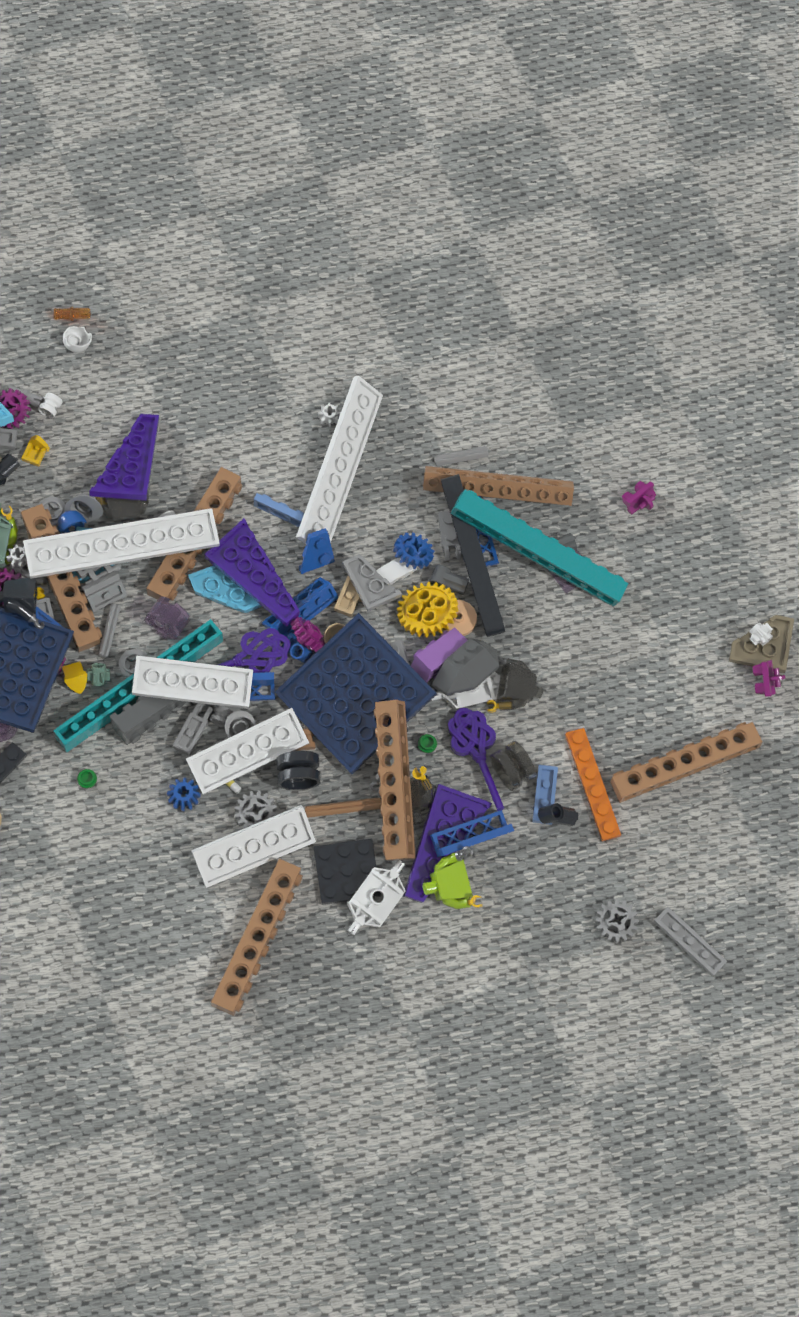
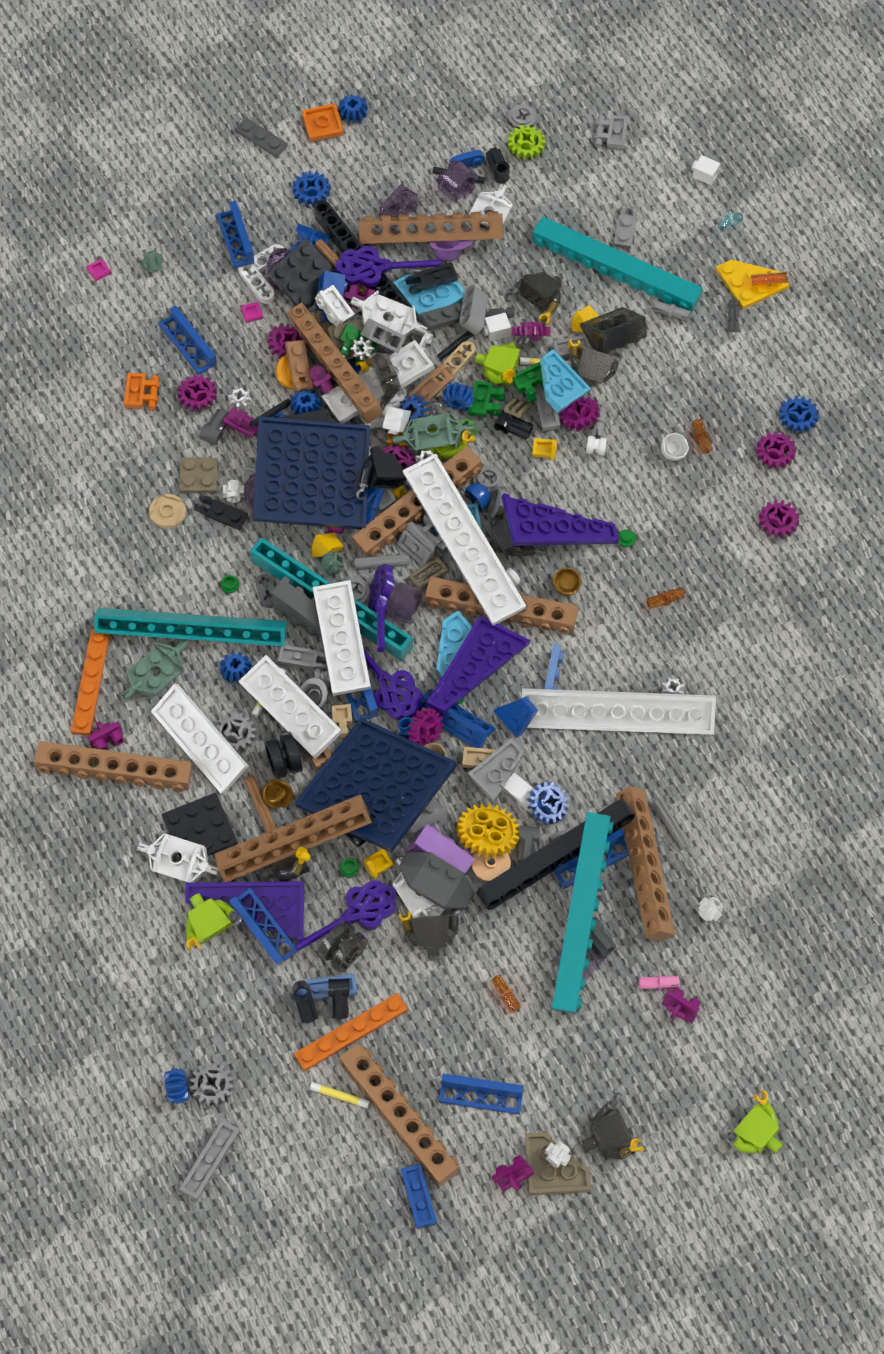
camera: 80 degrees right, 5 degrees down
(84, 230) = (796, 412): none -> blue gear
(100, 258) = (775, 451): none -> magenta gear
(106, 750) = (262, 592): none -> dark grey beam
(126, 826) = (190, 626): none -> teal brick
(141, 606) = (445, 570): none -> dark tan tile
(149, 636) = (379, 593): none -> dark purple piece
(153, 939) = (90, 683): none -> orange plate
(158, 408) = (626, 538): none -> green plate
(161, 856) = (162, 657): none -> sand green plate
(189, 467) = (569, 578): none -> pearl gold hair
(191, 277) = (773, 523): none -> magenta gear
(221, 927) = (104, 734): none -> magenta hips
(232, 393) = (665, 598): none -> clear orange axle
(268, 708) = (342, 717): none -> tan plate
(330, 784) = (277, 790): none -> pearl gold hair
(429, 717) = (377, 863): none -> yellow tile
(555, 446) = (710, 909): none -> white gear
(559, 782) = (339, 992): none -> black piece
(591, 639) = (506, 994): none -> clear orange axle
(612, 508) = (659, 982): none -> bright pink axle
(613, 952) = (176, 1086): none -> blue gear
(652, 809) = (339, 1095): none -> light yellow bar
(678, 681) = (481, 1086): none -> blue fence
(746, 587) = (611, 1133): none -> clear smoke torso
(766, 765) = (418, 1196): none -> blue plate
(769, 469) = (756, 1129): none -> lime torso

